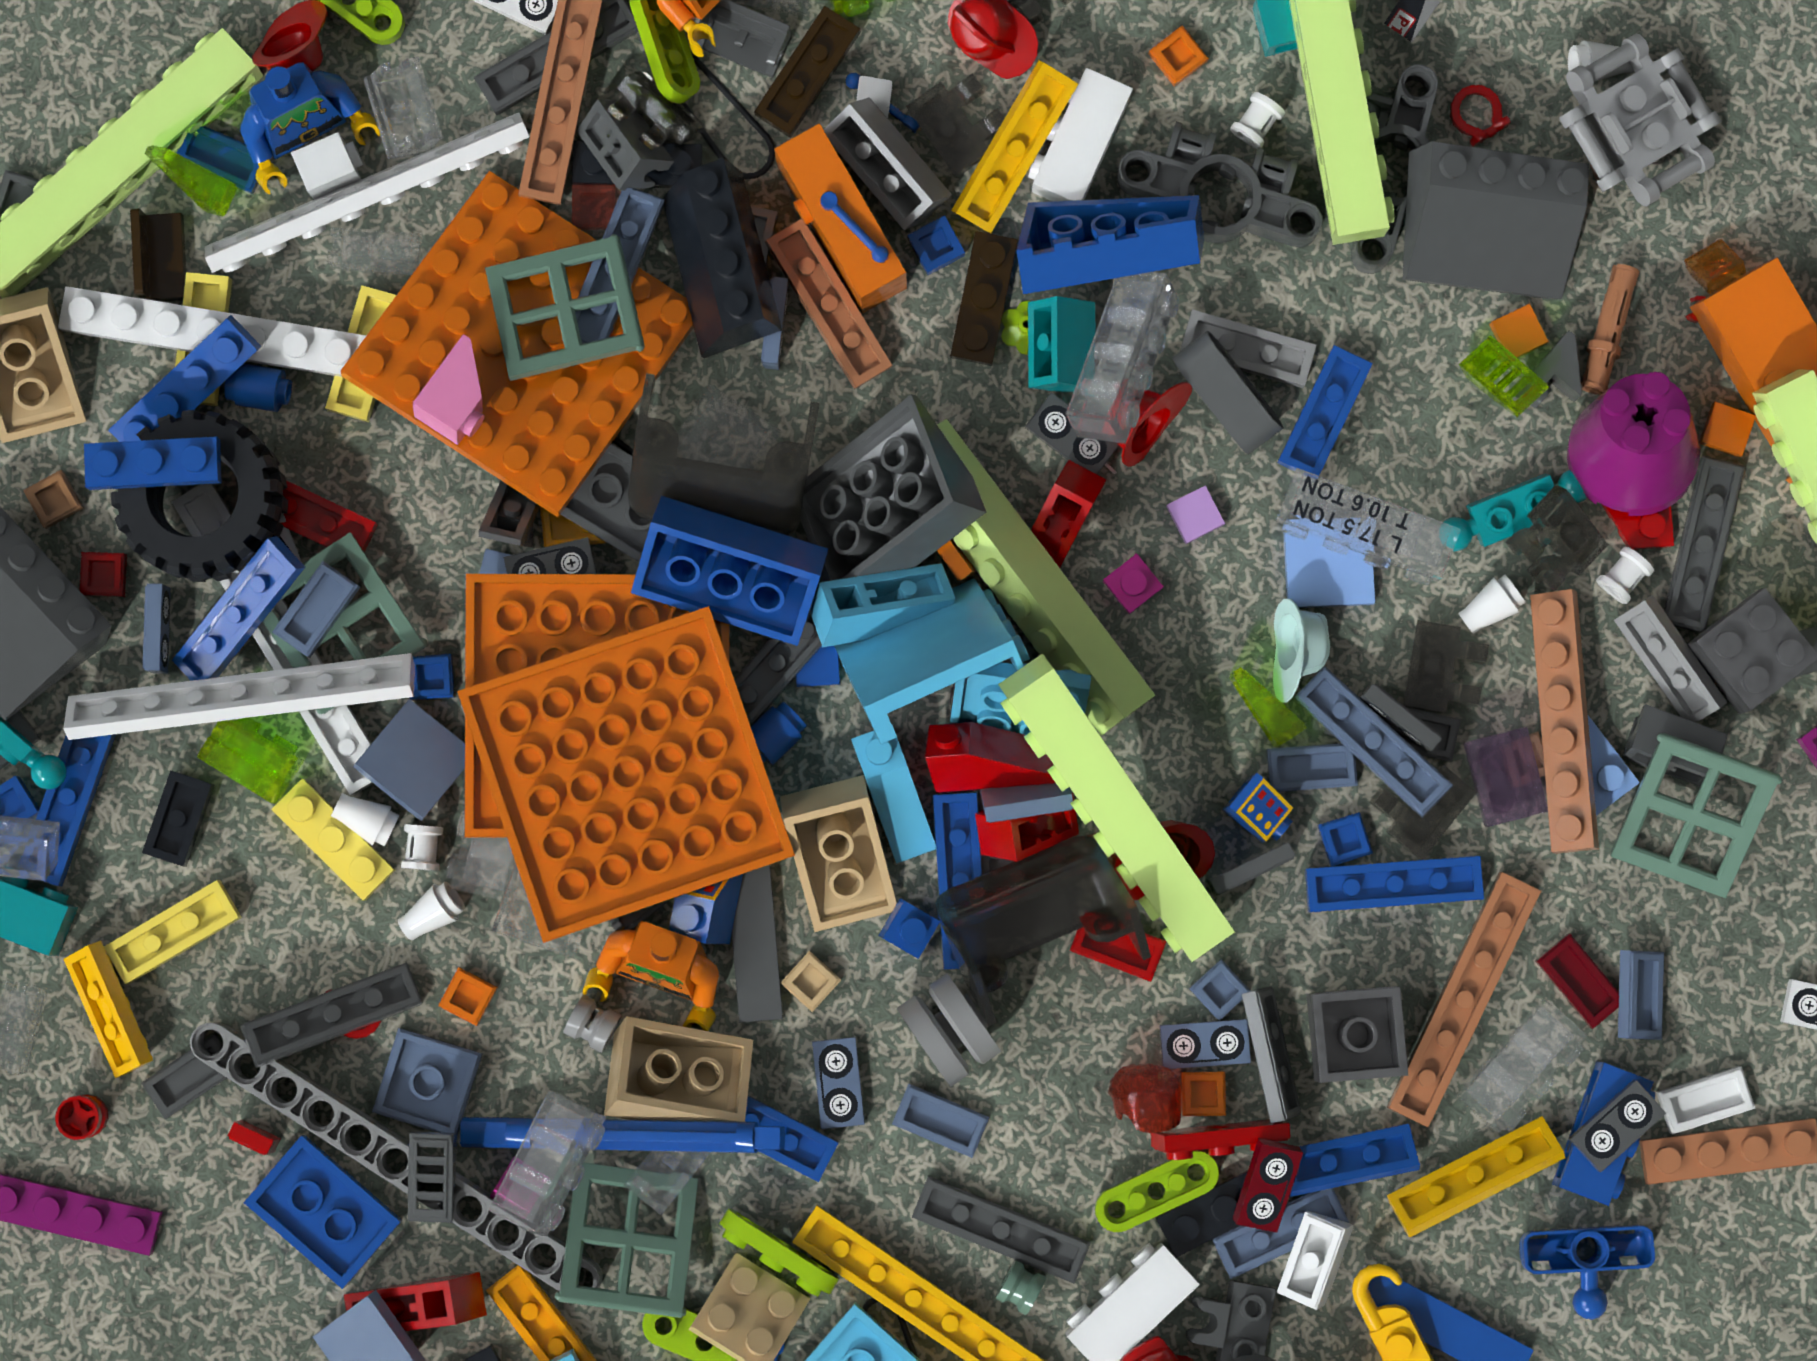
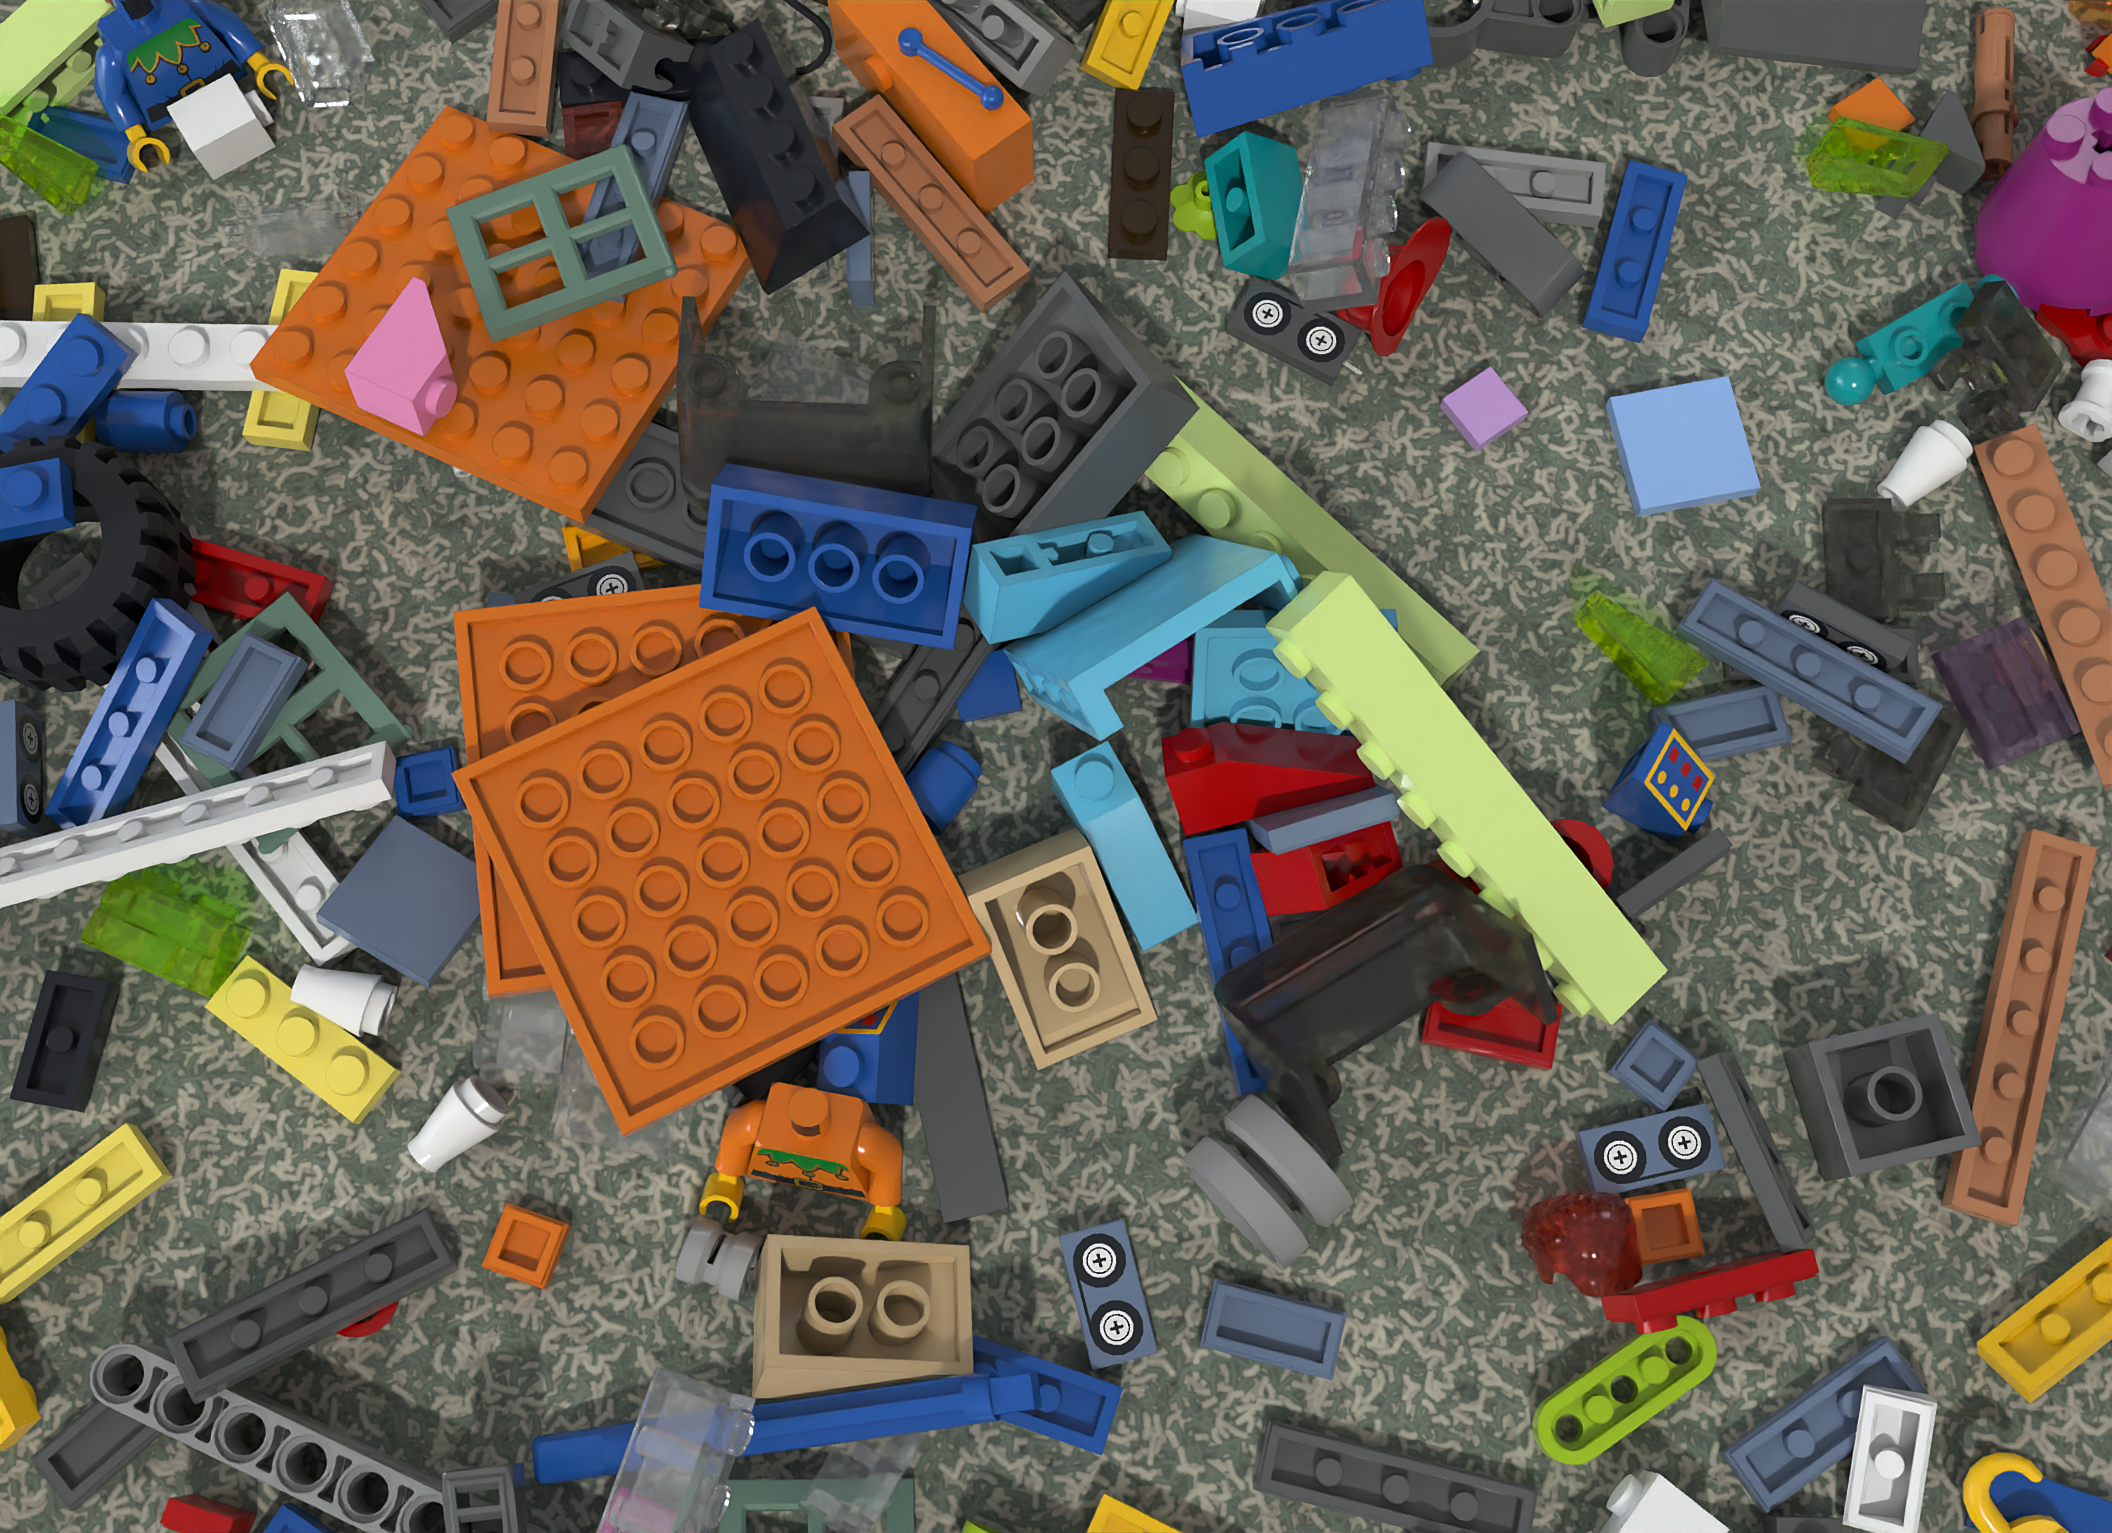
camera: 10 degrees left, 10 degrees down
(352, 199) = (258, 166): white plate -> none
(421, 847) = (434, 1029): white bush -> none
(427, 1082) = (476, 1390): sand blue tile -> none
(509, 517) = (517, 542): dark grey slope -> none
(810, 981) = (1043, 1144): tan tile -> none
(909, 928) = (1178, 1042): blue plate -> none
(936, 245) = (1066, 114): blue plate -> none
(956, 561) = (1161, 508): orange tile -> none
(1067, 509) = (1305, 419): red arch -> none
(1132, 583) = (1414, 512): dark pink plate -> none
(1202, 1217) = (1733, 1400): black plate -> none
(1267, 1185) = (1801, 1352): tile -> none
(1300, 647) = (1668, 556): light aqua piece -> none
(1345, 839) = (1789, 820): blue tile -> none
(1355, 1159) = (1909, 1295): blue plate -> none
(1367, 526) = (1733, 378): clear brick -> none
(1394, 884) = (1878, 871): blue plate -> none

